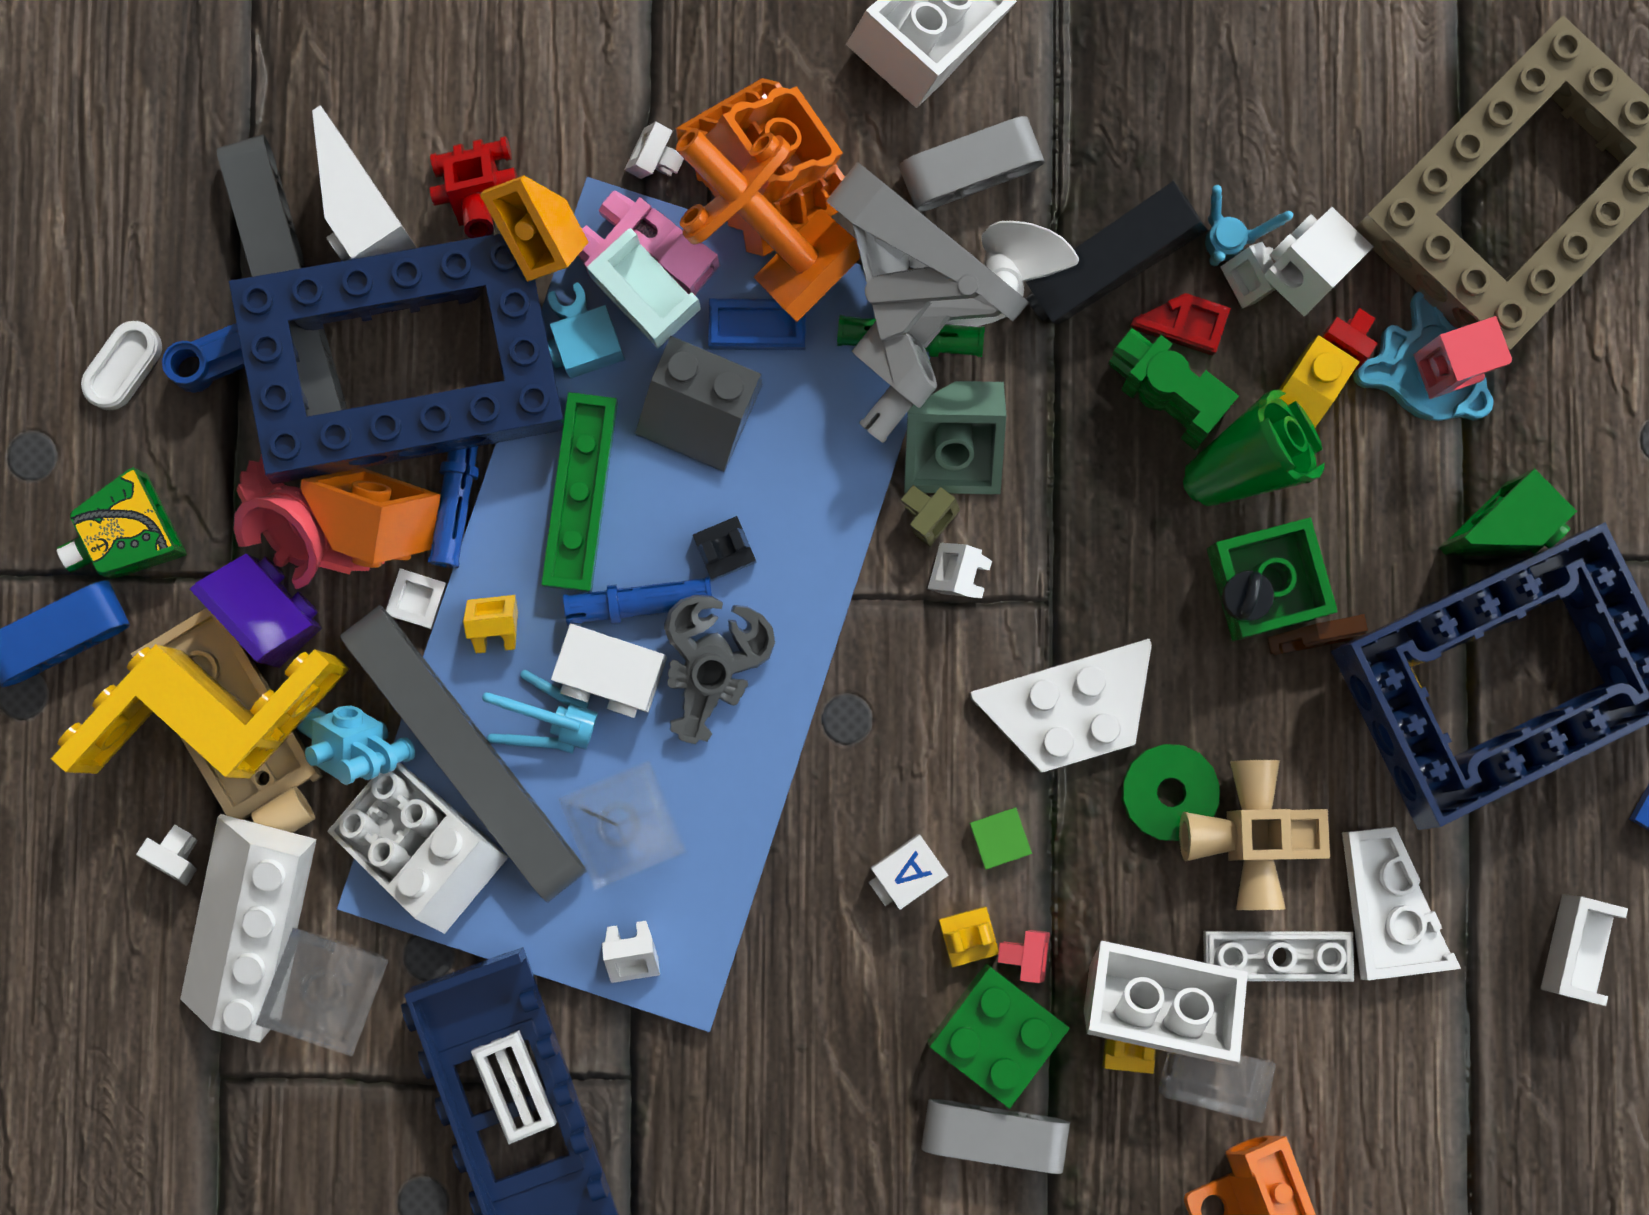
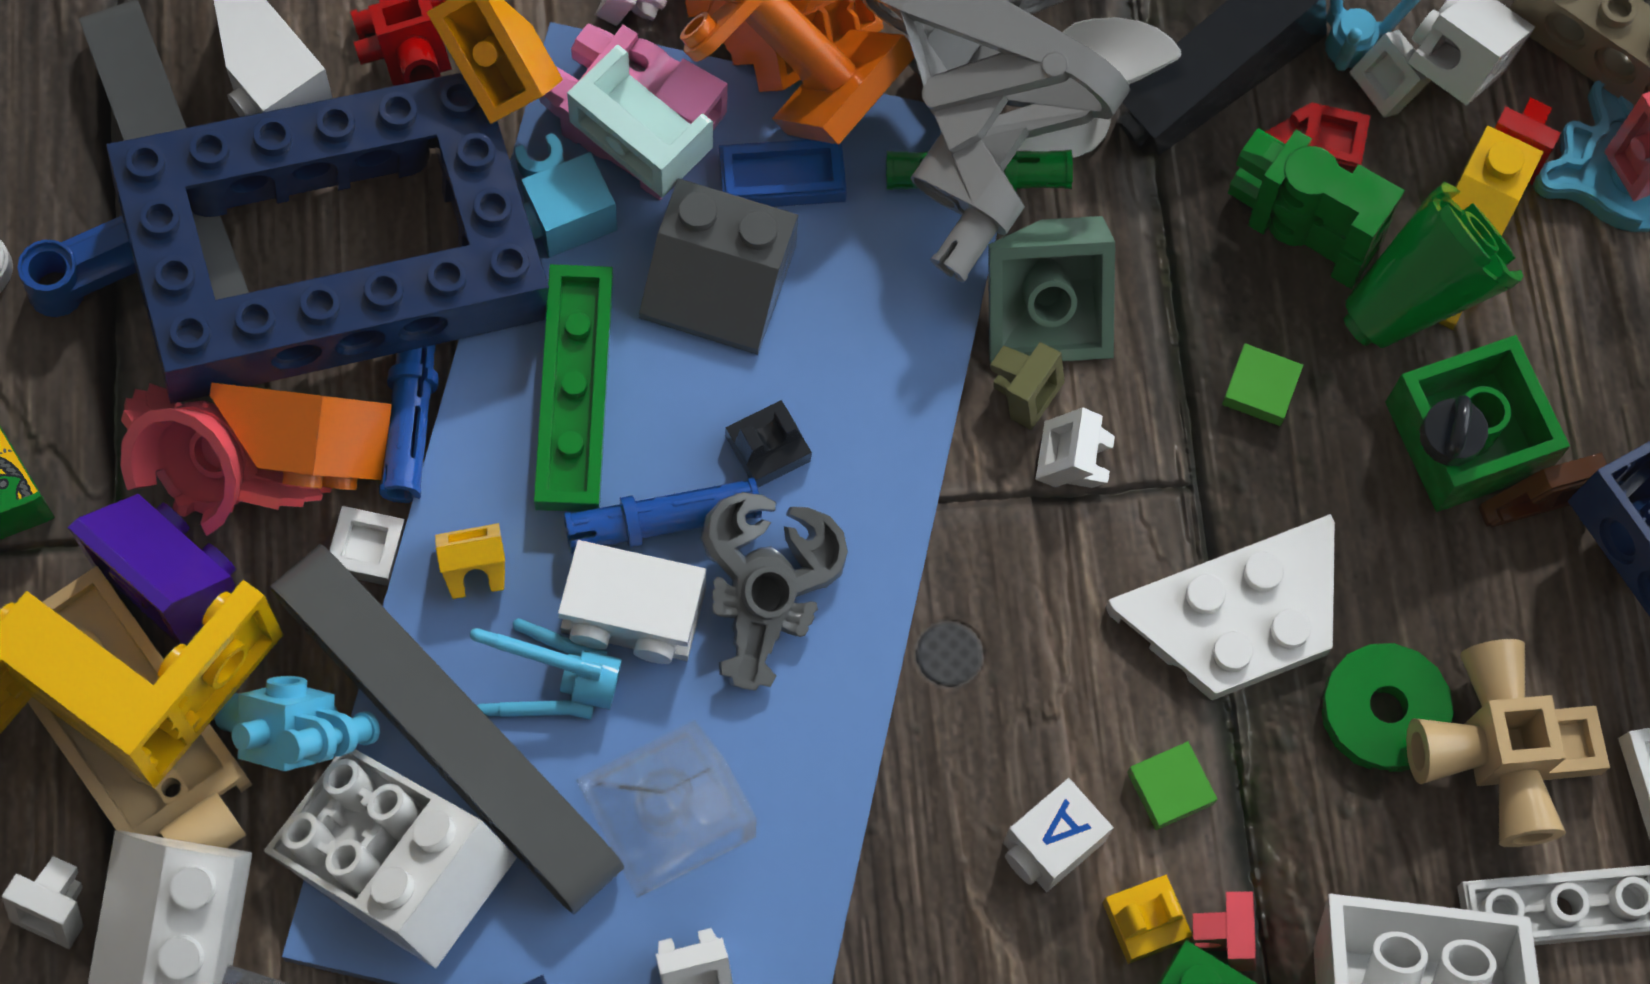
camera: 10 degrees left, 15 degrees down
(1113, 526) = (1262, 384): none -> bright green tile

